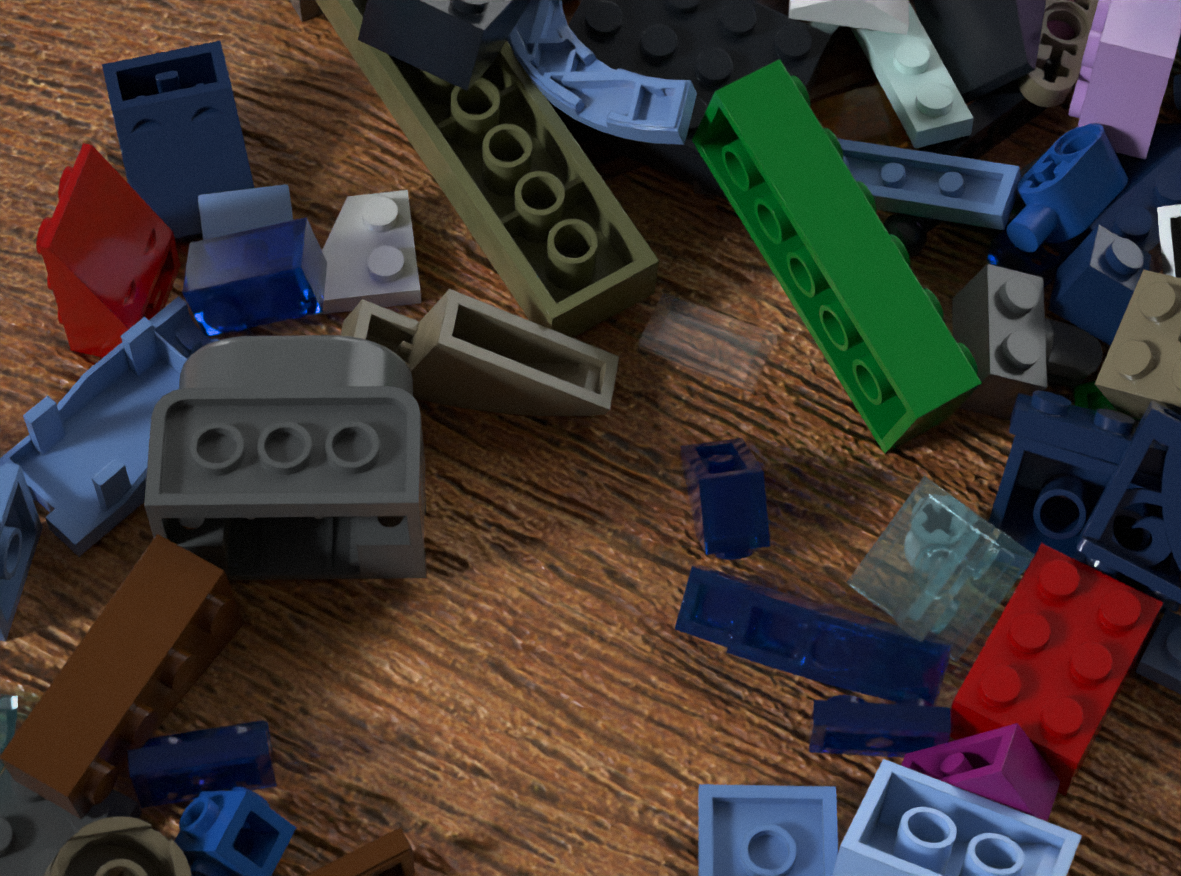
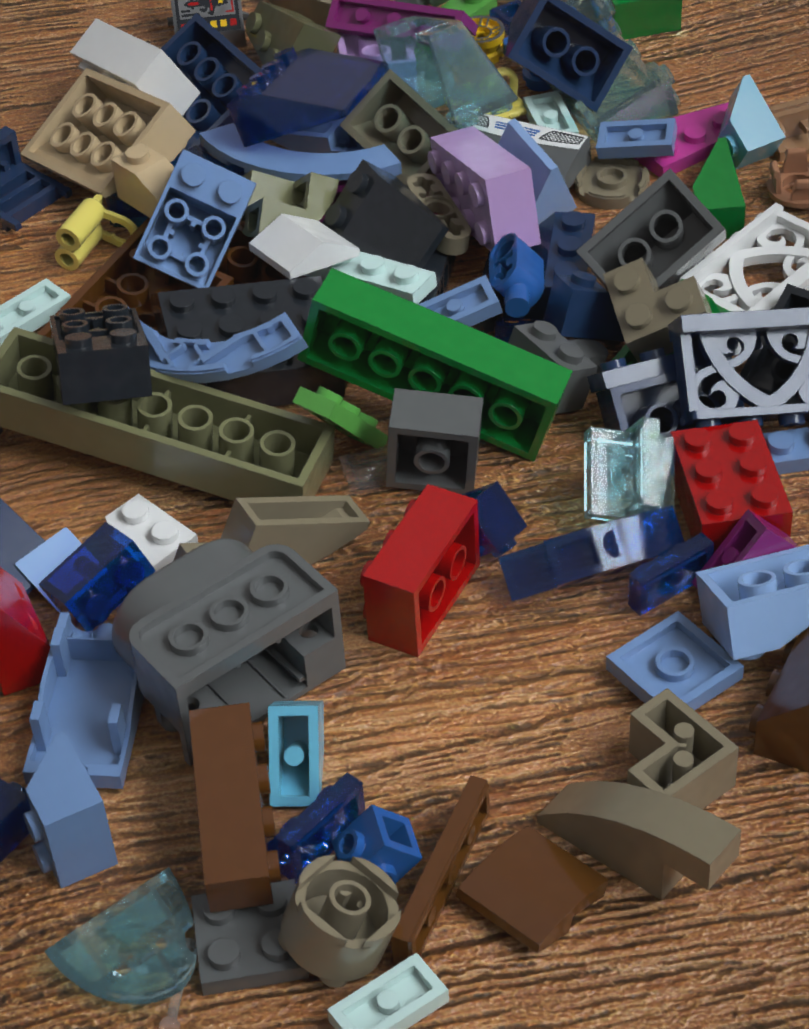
camera: 35 degrees left, 15 degrees down
(273, 646) = (295, 752): none -> medium azure slope
(592, 520) = (421, 569): none -> red brick
(676, 255) = (343, 415): none -> bright green plate
(758, 357) = (433, 440): none -> dark grey brick

